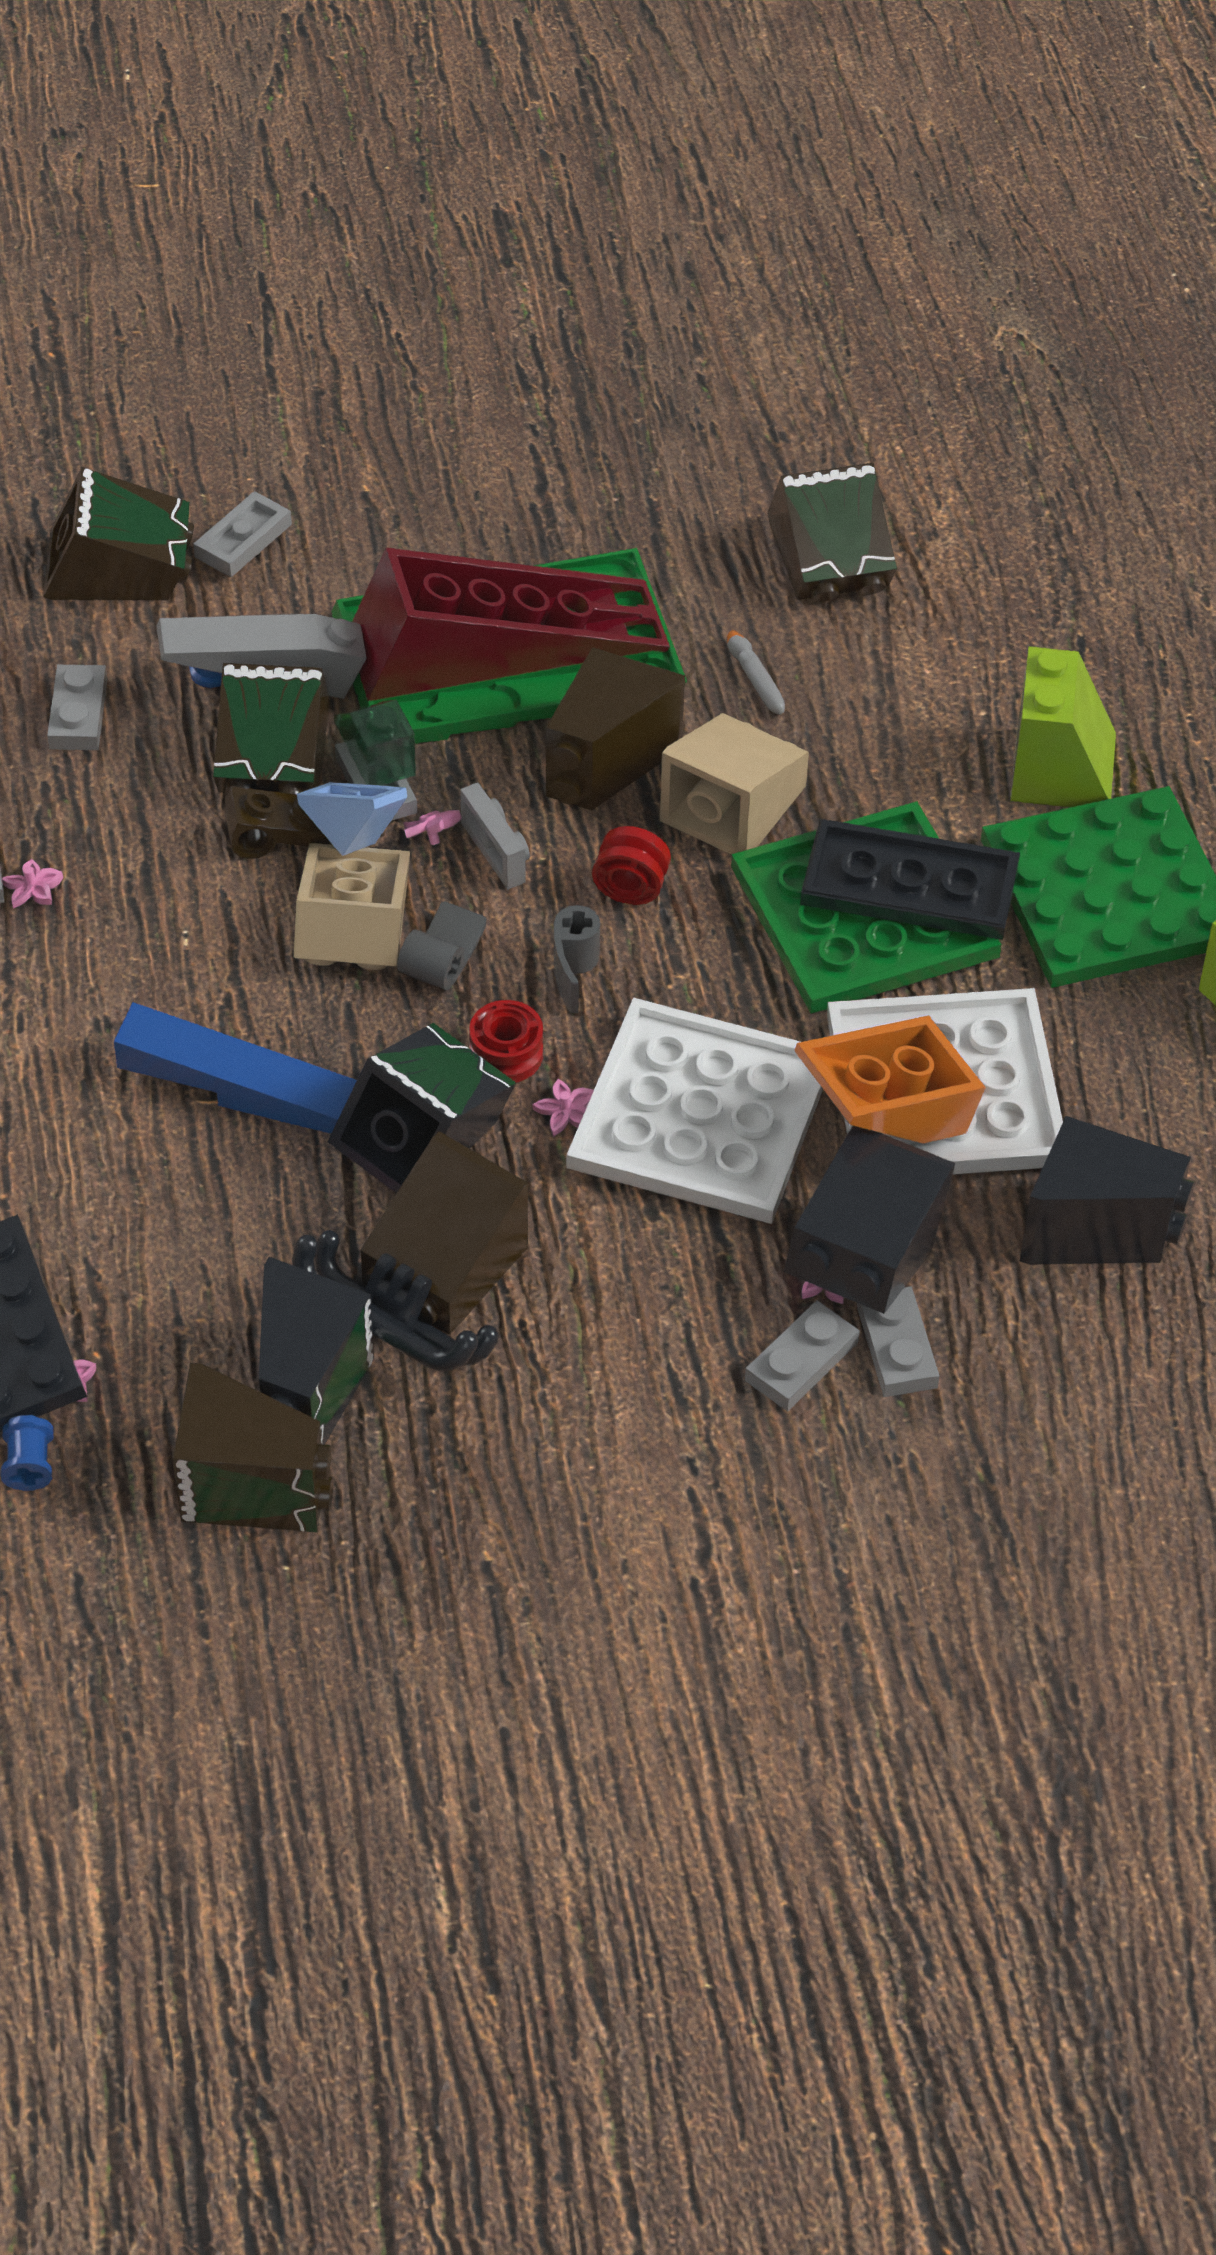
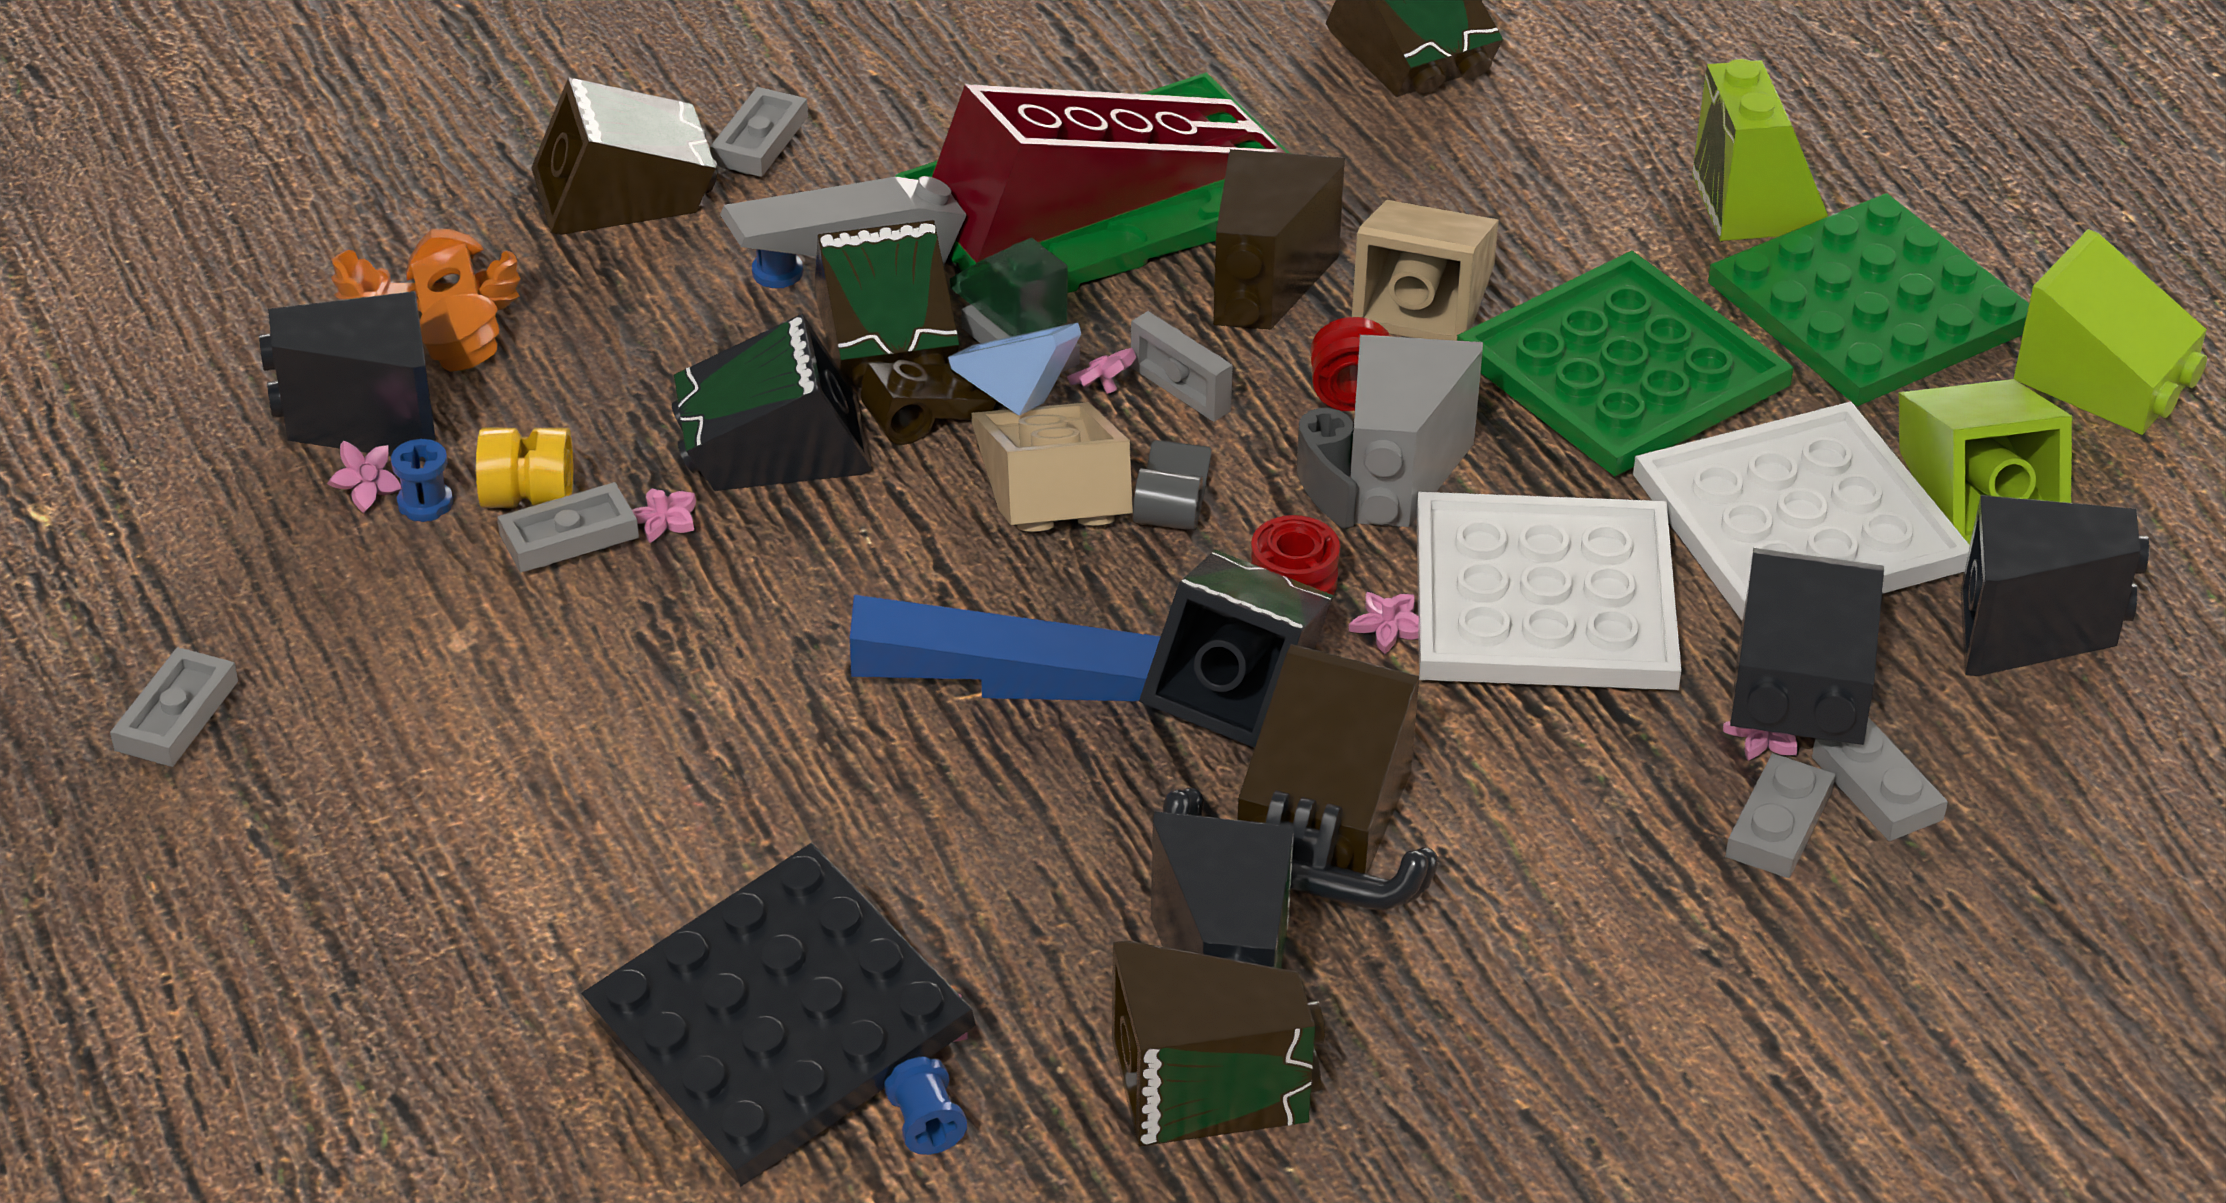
camera: 15 degrees left, 10 degrees down
(77, 707) = (640, 330): light grey plate -> none
(144, 814) = (770, 413): none -> black slope
(643, 935) = (1410, 421): none -> light grey slope
(756, 672) = (1389, 167): light grey piece -> none
(896, 1079) = (1781, 494): orange slope -> none
(910, 879) = (1666, 320): black tile -> none
(1125, 1064) = (1987, 443): none -> lime slope

